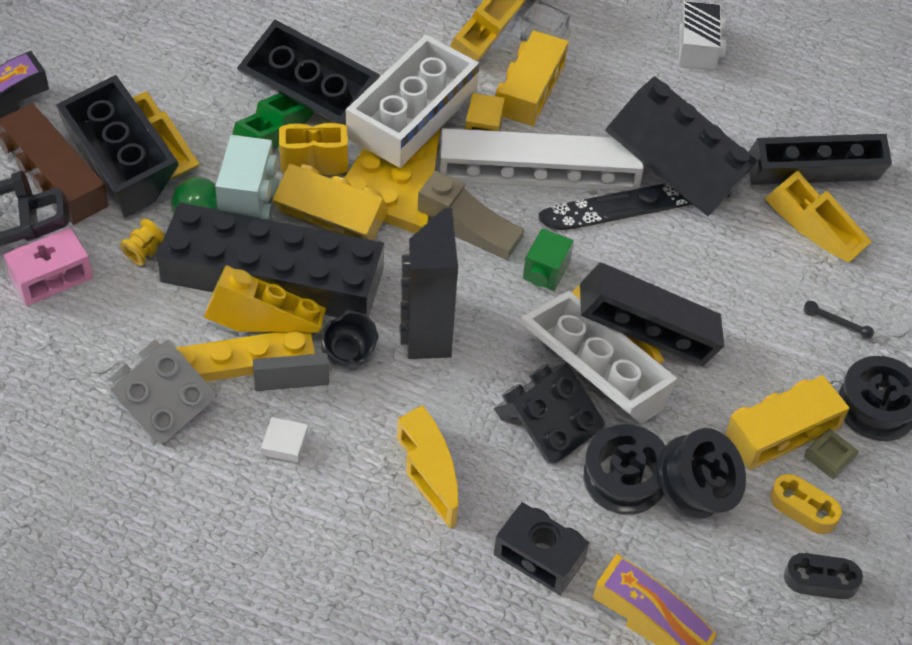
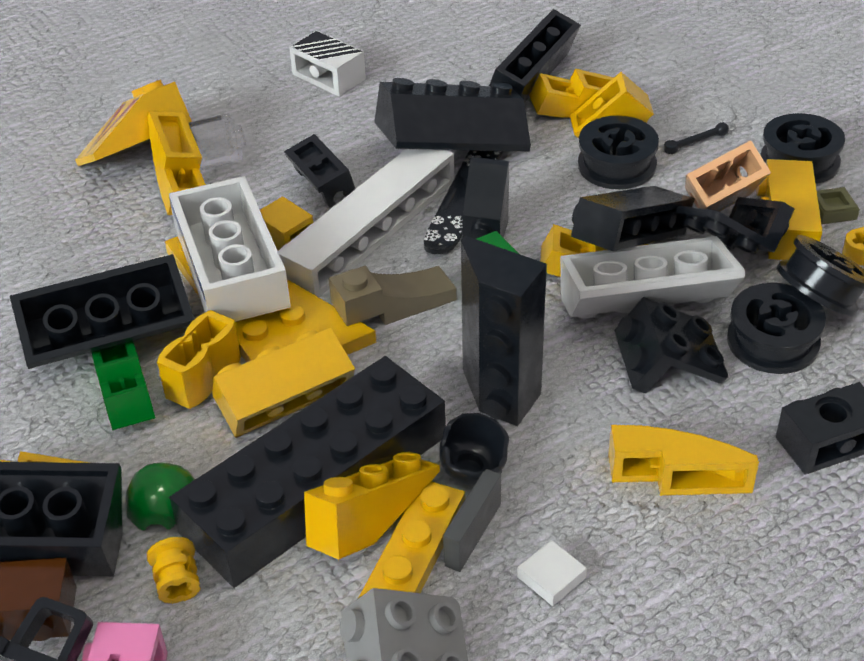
camera: 50 degrees left, 10 degrees down
(247, 177) = (194, 421): light aqua brick -> none
(532, 77) = (266, 170): yellow brick -> none
(563, 103) = (321, 168): none -> black hinge
(601, 220) = (486, 198): none -> black slope
(700, 393) = (750, 226): none -> black bracket
(752, 353) = (720, 181): none -> light nougat torso
(760, 258) = (618, 152): none -> black wheel
(810, 245) = (616, 98): none -> yellow slope

